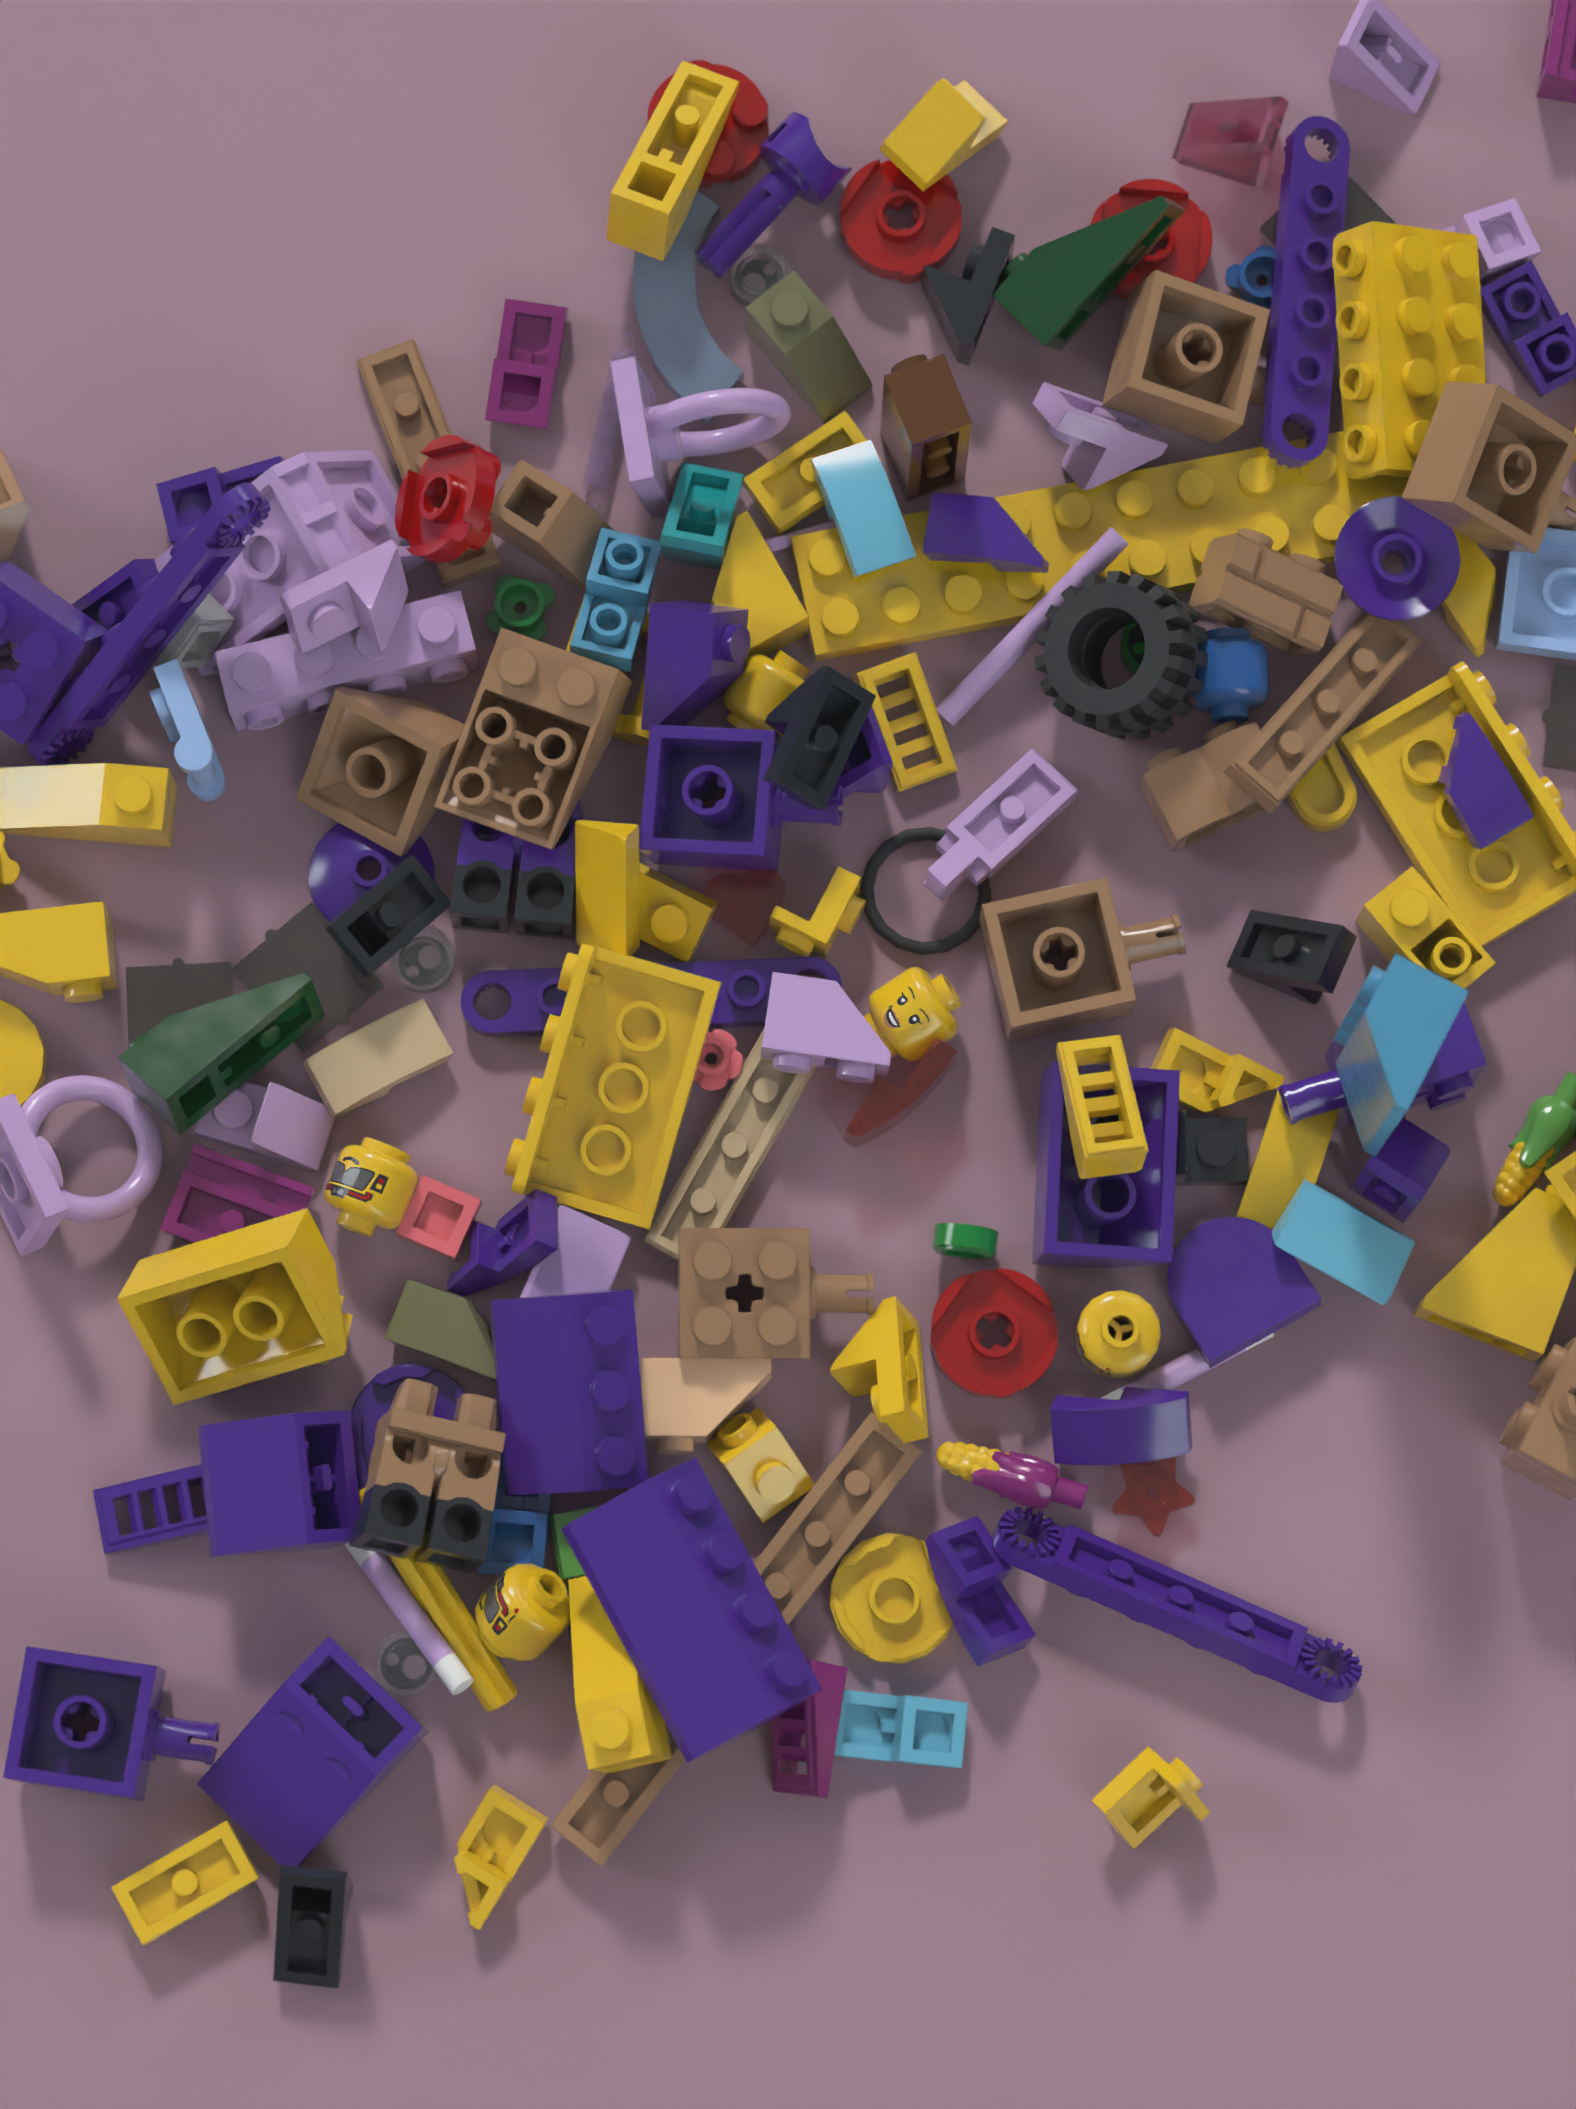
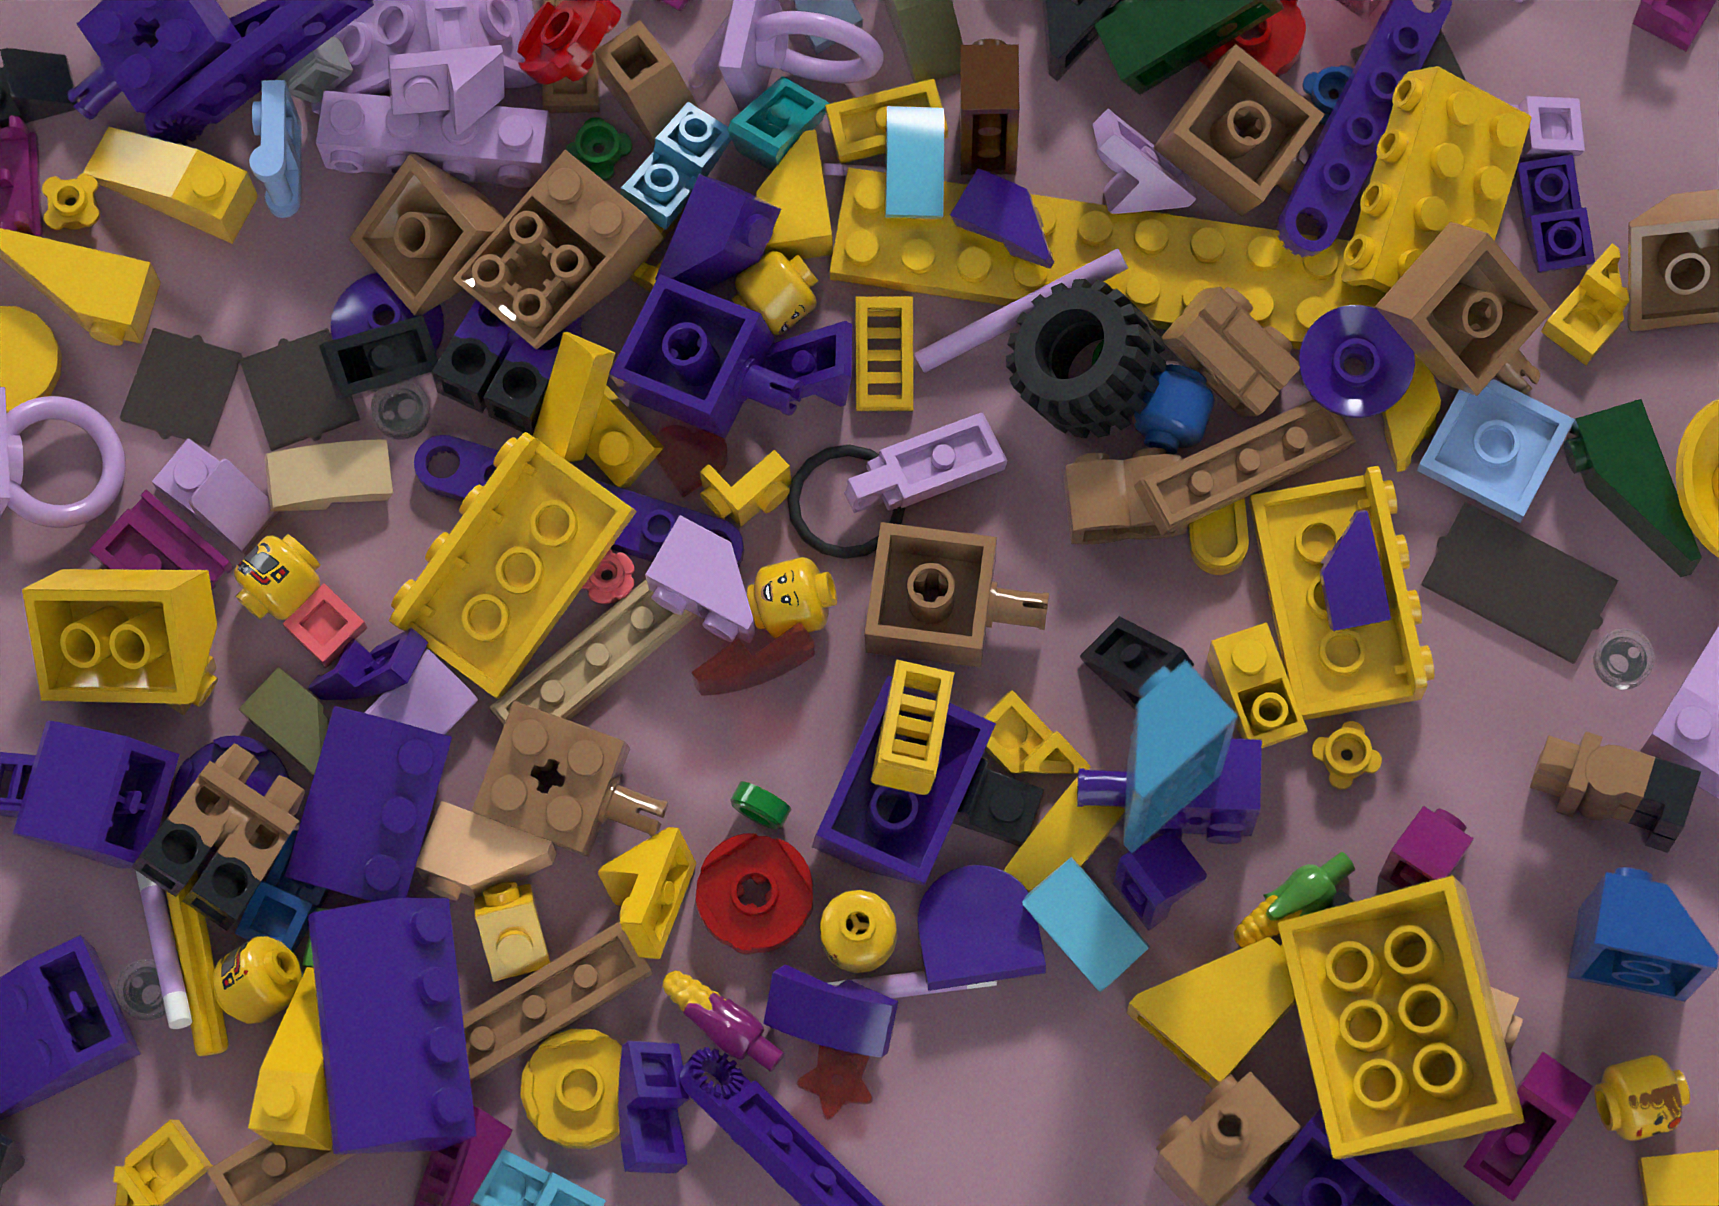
camera: 25 degrees right, 5 degrees down
(213, 1049) = (195, 415): dark green slope -> none
(818, 734) = (793, 330): black slope -> none
(1537, 952) = (1350, 738): none -> yellow plate

